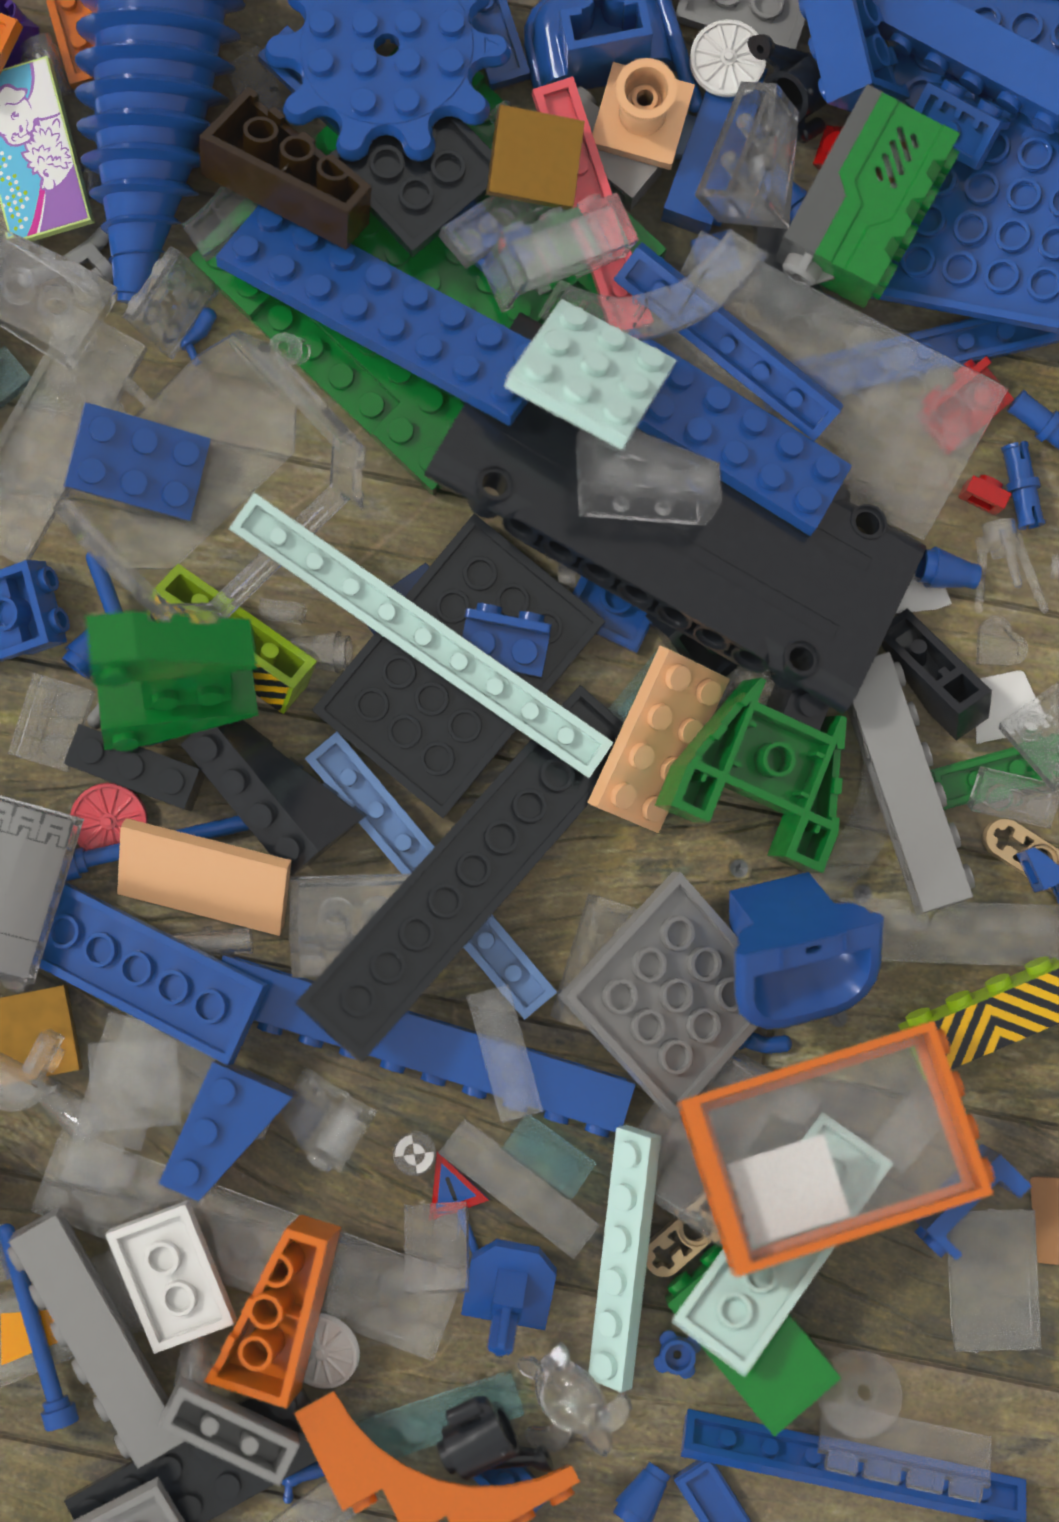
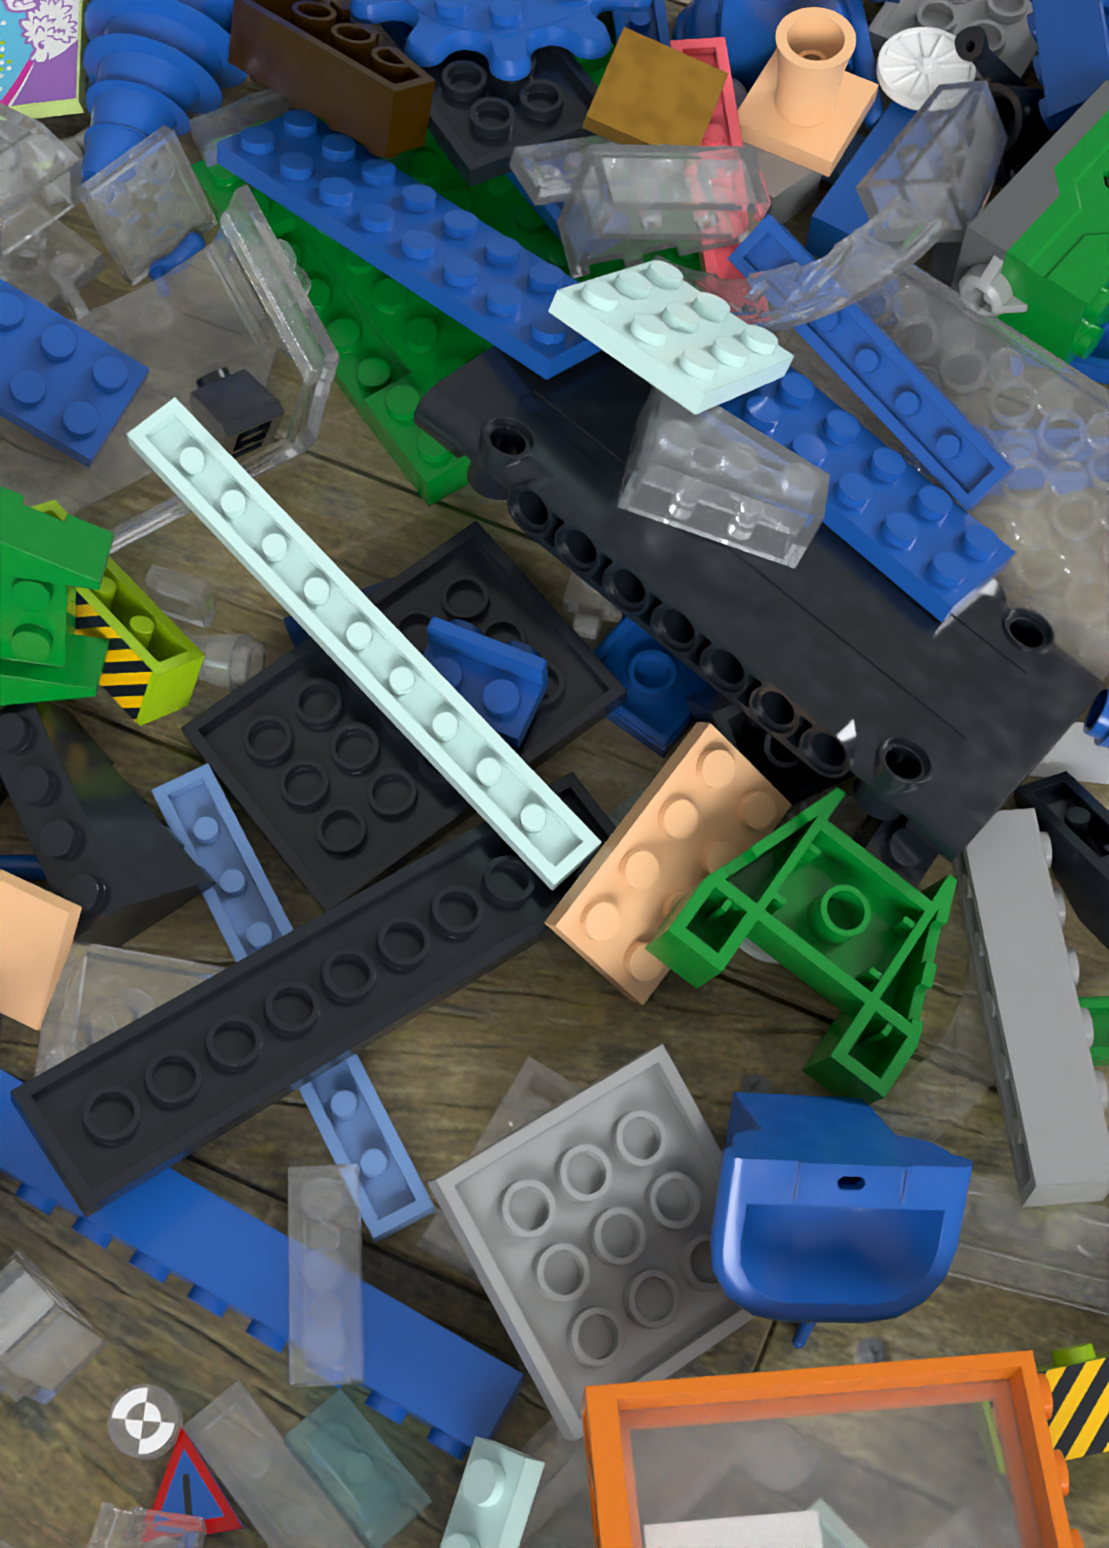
camera: 15 degrees right, 20 degrees down
(287, 472) = (236, 410): none -> black slope
(767, 1045) = (731, 1360): blue piece -> none

